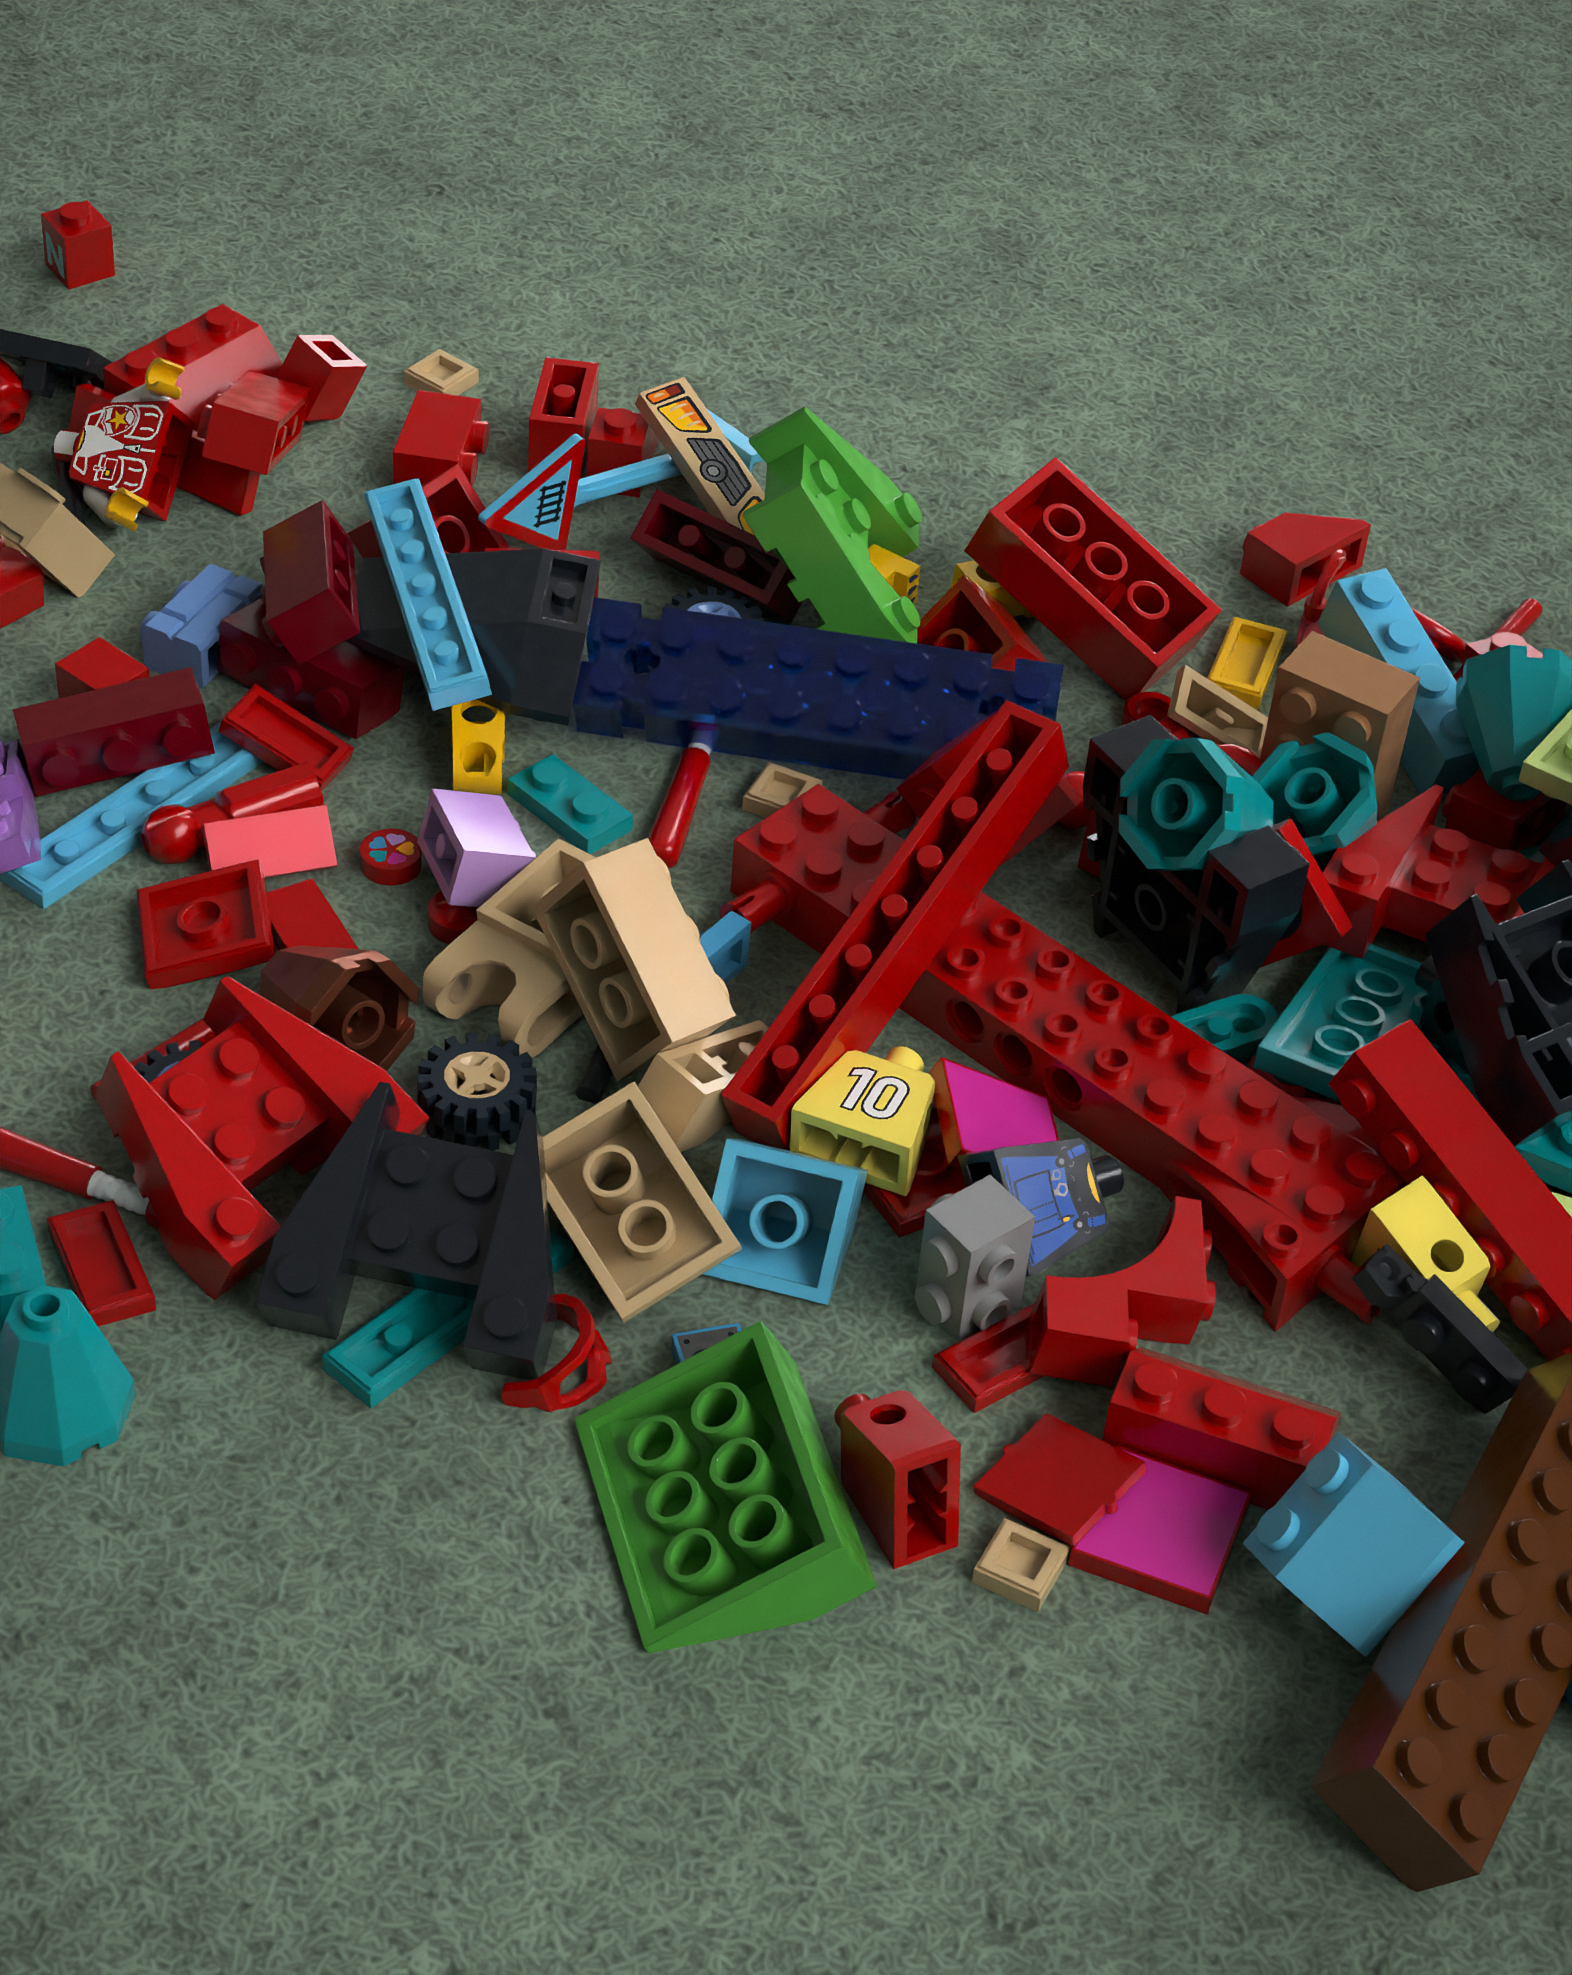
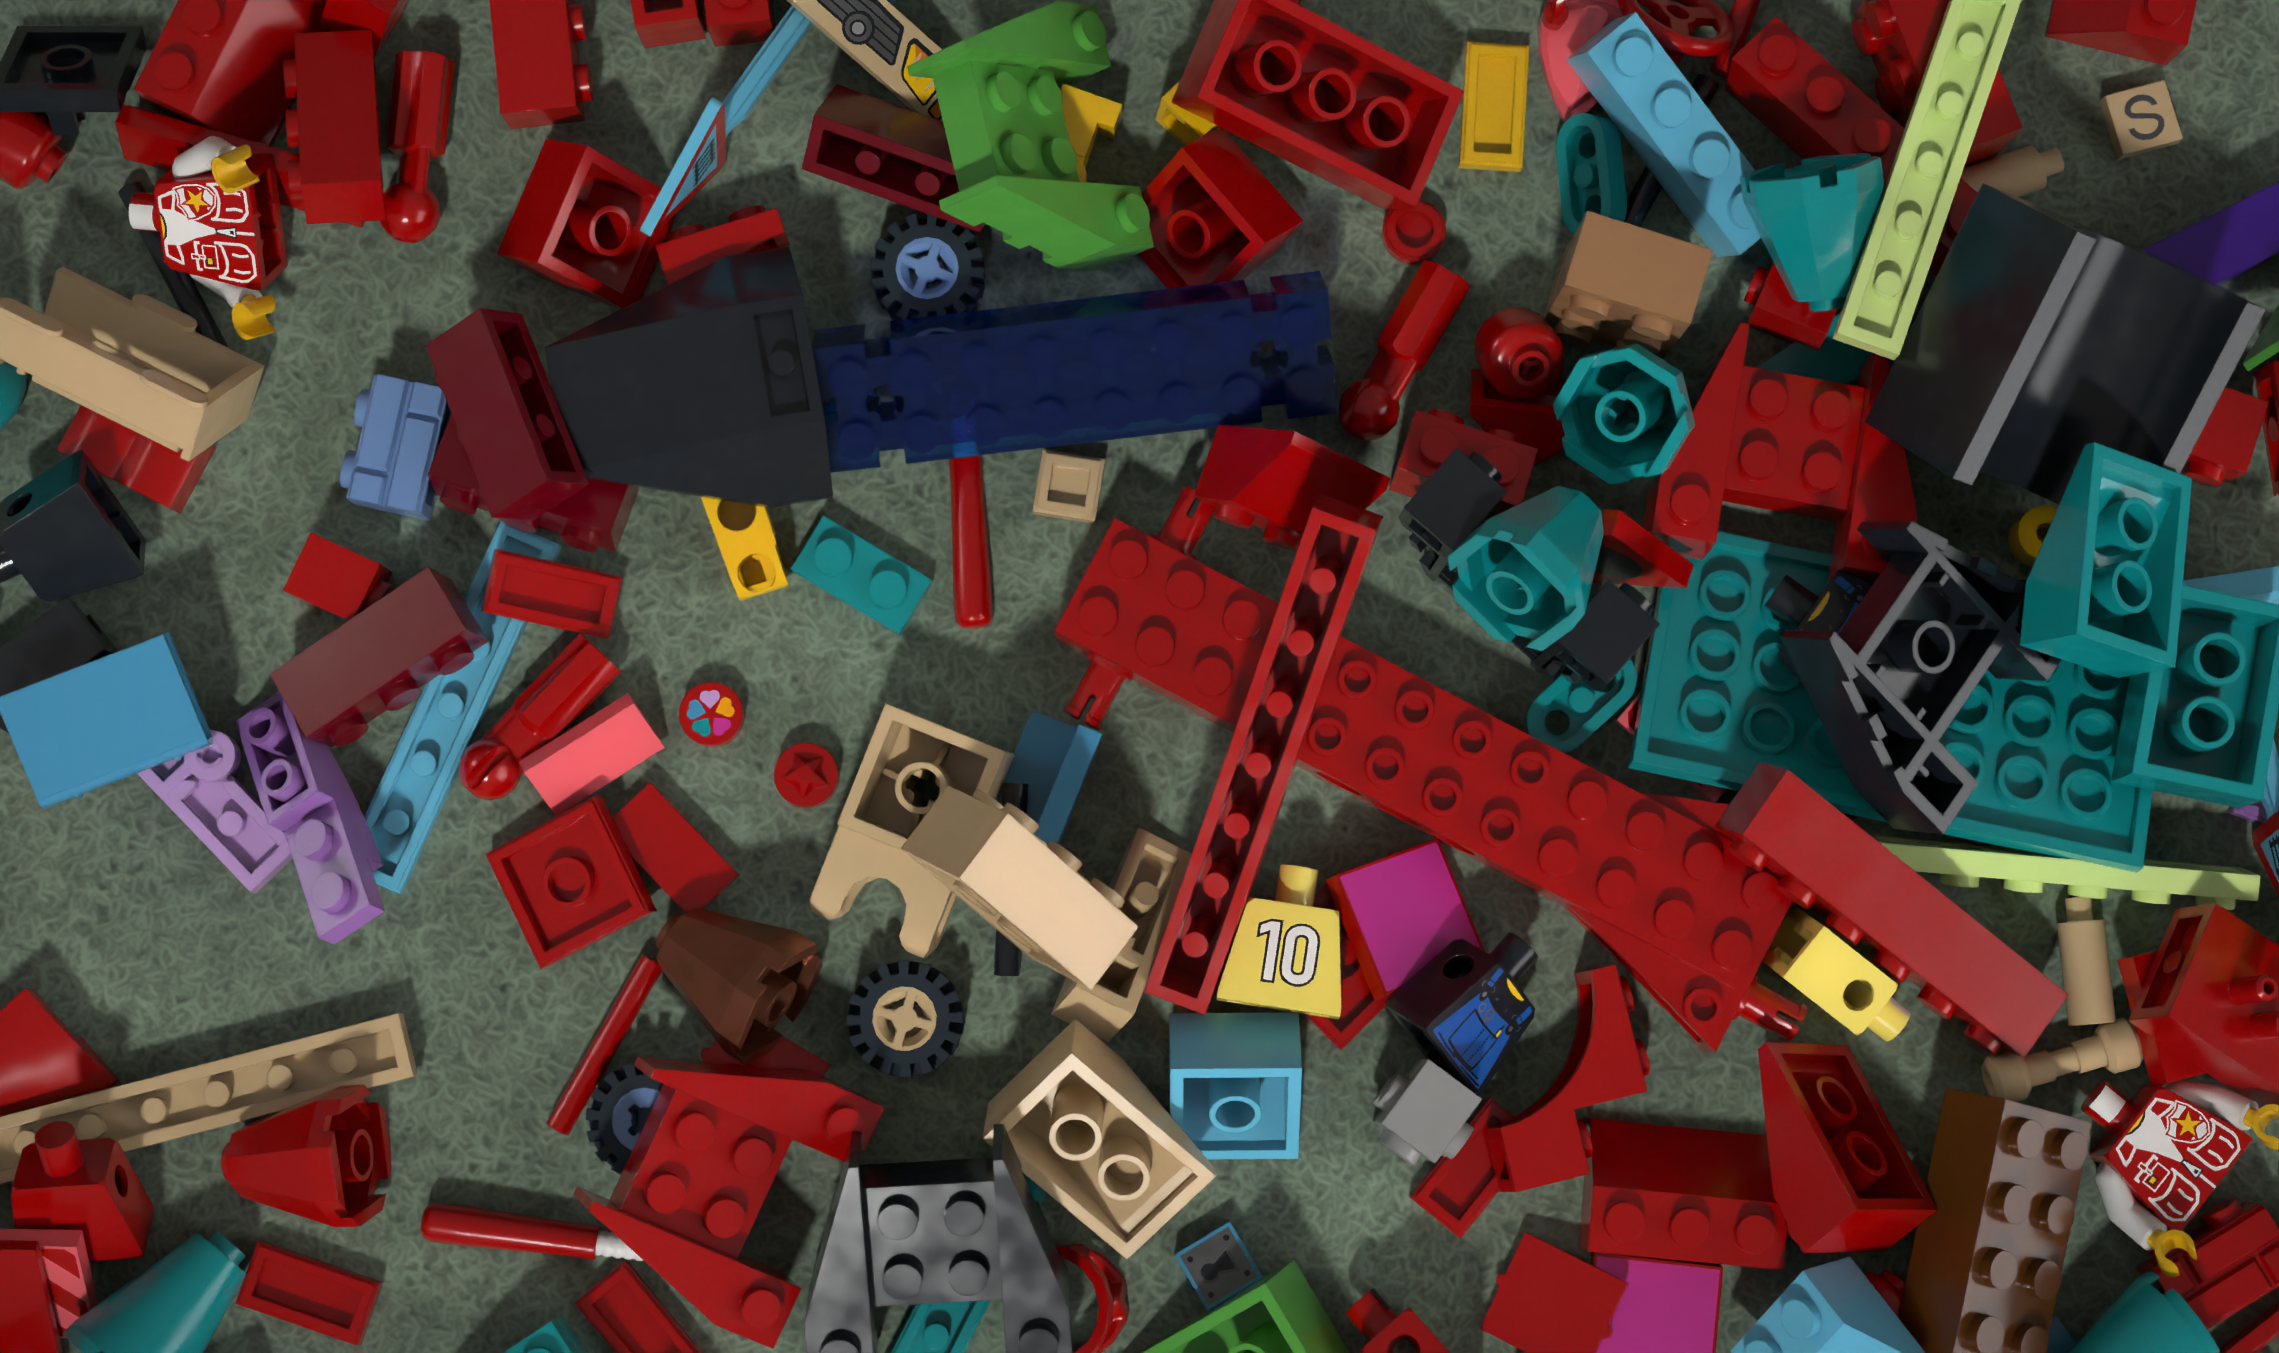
camera: 15 degrees left, 40 degrees up
(313, 467) = (417, 136): none -> red piece
(427, 595) = (636, 407): medium azure tile -> none
(471, 845) = (803, 715): lavender brick -> none
(1215, 712) = (1491, 241): tan slope -> none
(1396, 1400) = (1835, 1153): none -> red slope
(1441, 1329) = (1854, 1056): black hinge -> none

